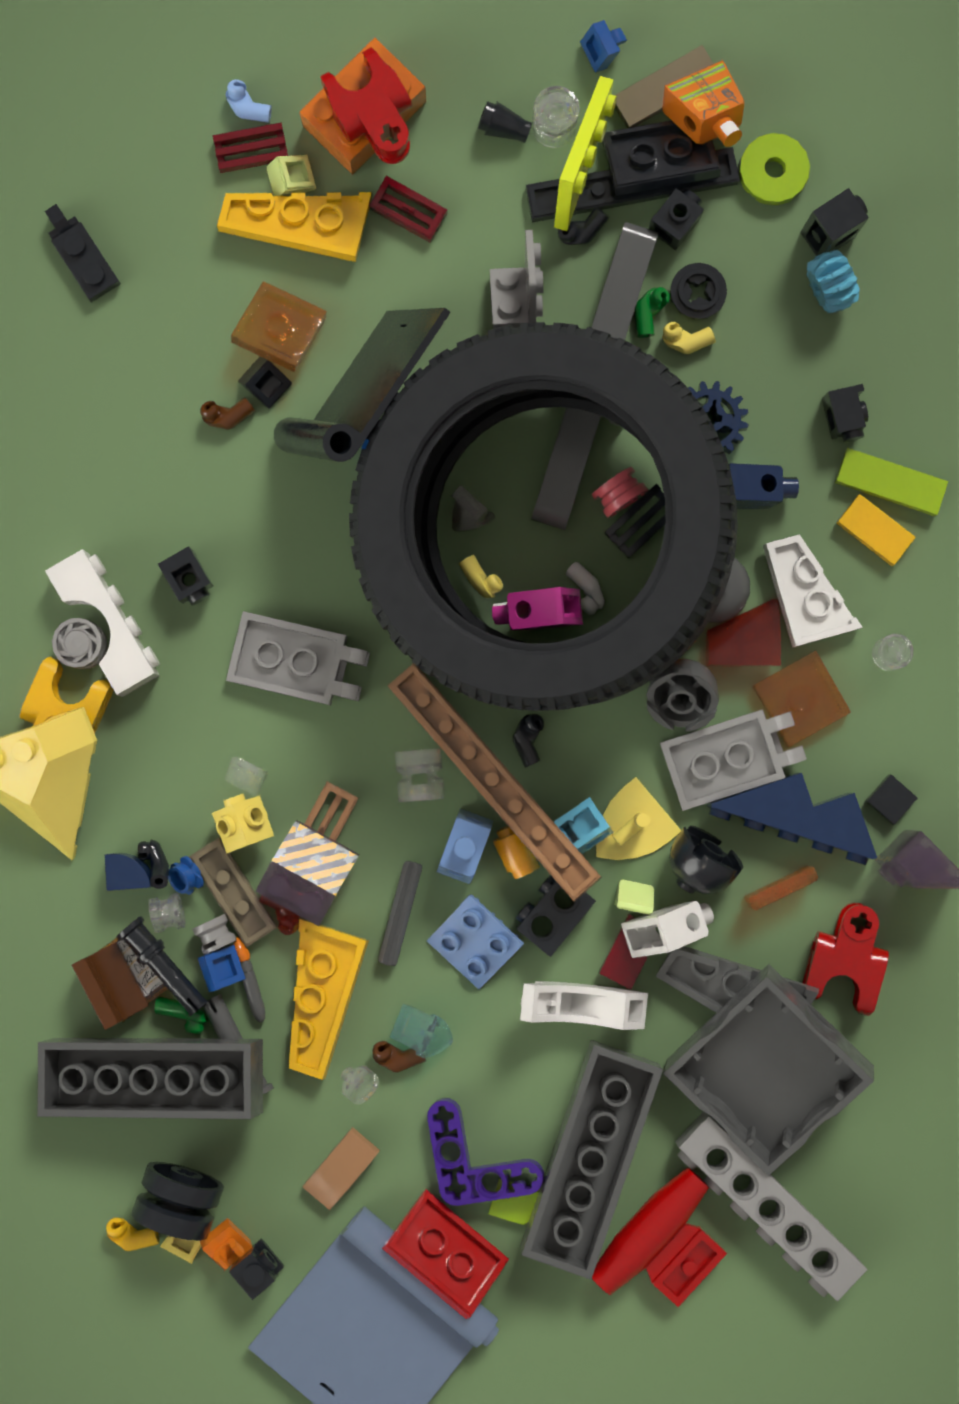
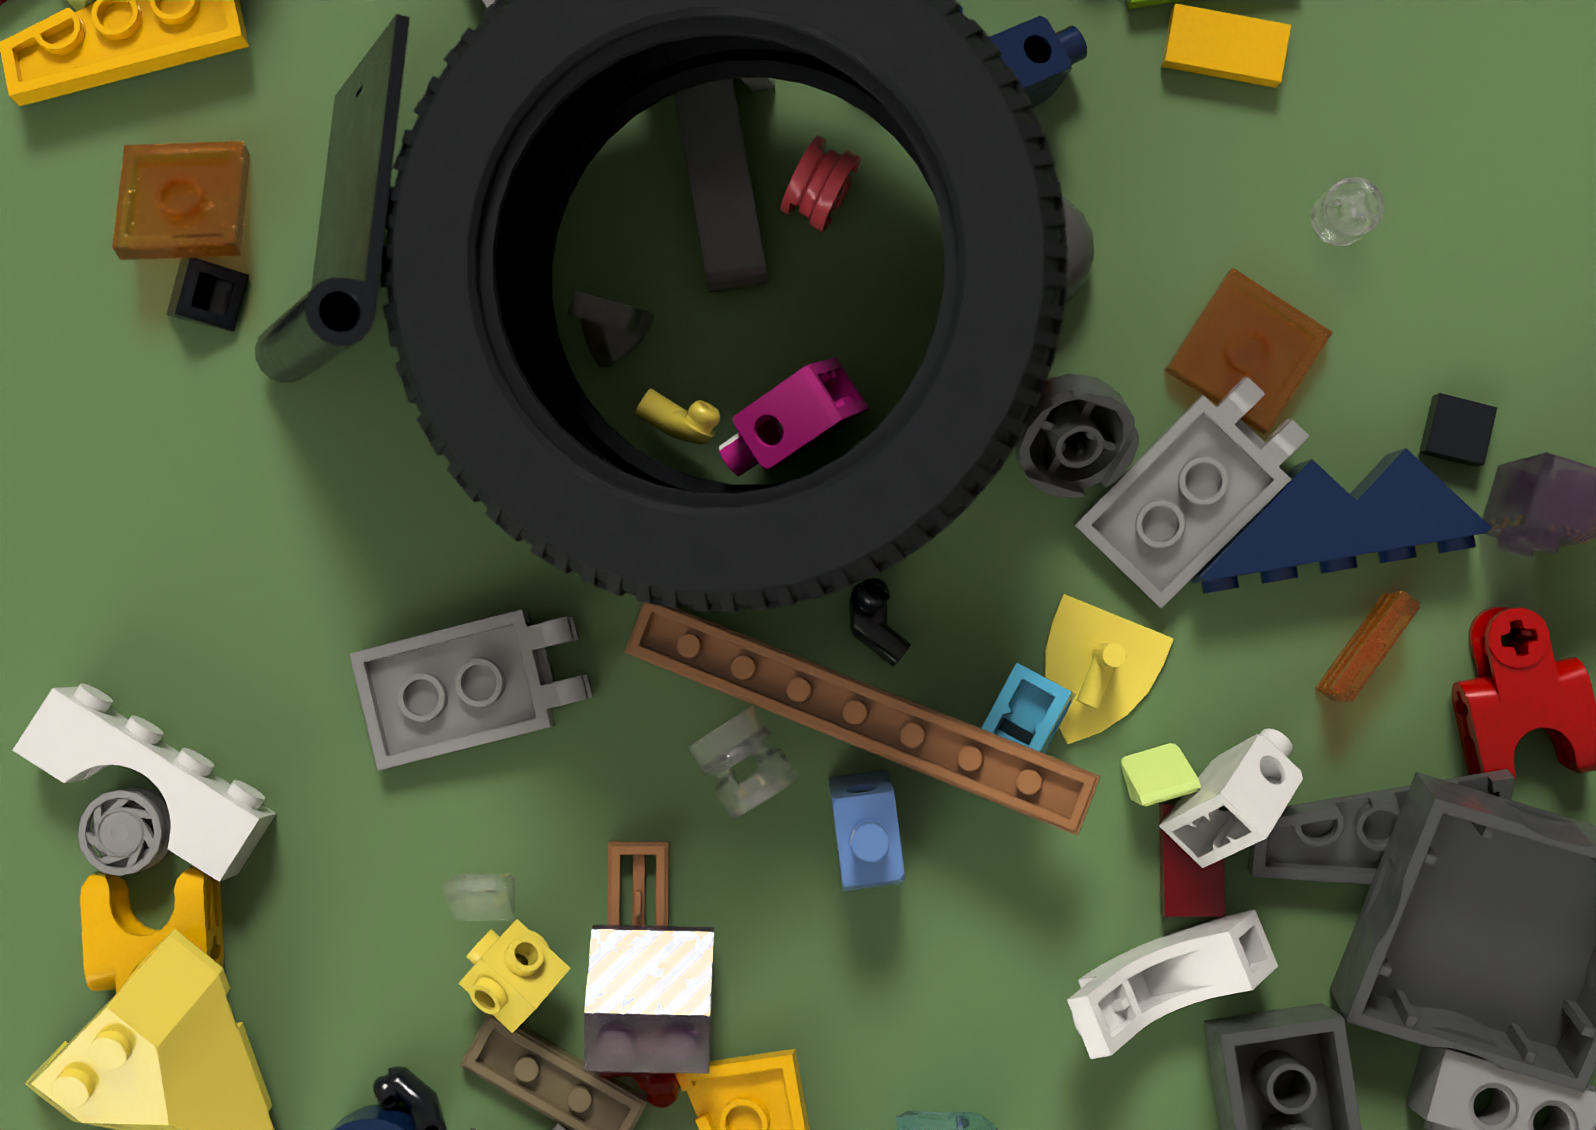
camera: 25 degrees left, 0 degrees up
(175, 570) = (216, 643): black brick -> none
(185, 876) = (468, 1098): blue plate -> none
(225, 417) = (173, 377): reddish brown arm -> none
(400, 913) = (821, 983): dark grey axle -> none
(475, 941) = (956, 965): medium blue hinge -> none
(514, 853) = (945, 805): light orange brick -> none
(562, 919) = (1069, 863): black brick -> none
(589, 584) = (848, 345): white arm -> none
(619, 541) = (891, 164): black tile -> none
(702, 863) = (1234, 672): black cylinder -> none
(747, 639) = (1123, 304): clear red slope -> none
(804, 593) = (1175, 196): white wing -> none

